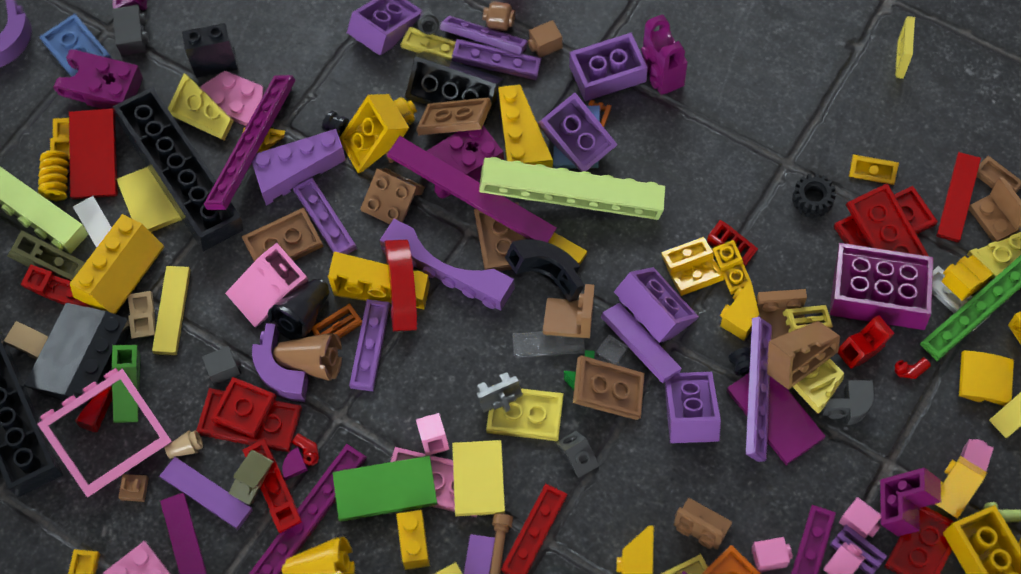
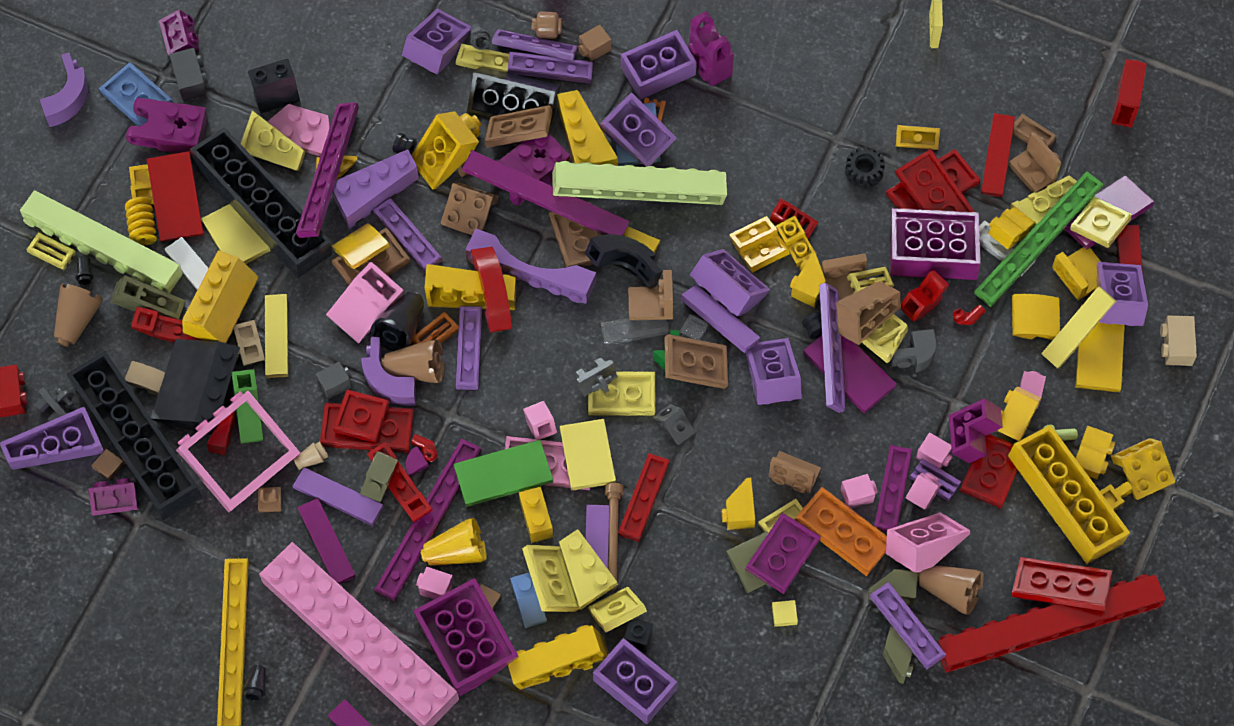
camera: 10 degrees left, 0 degrees up
(273, 224) = (360, 246): none -> yellow slope

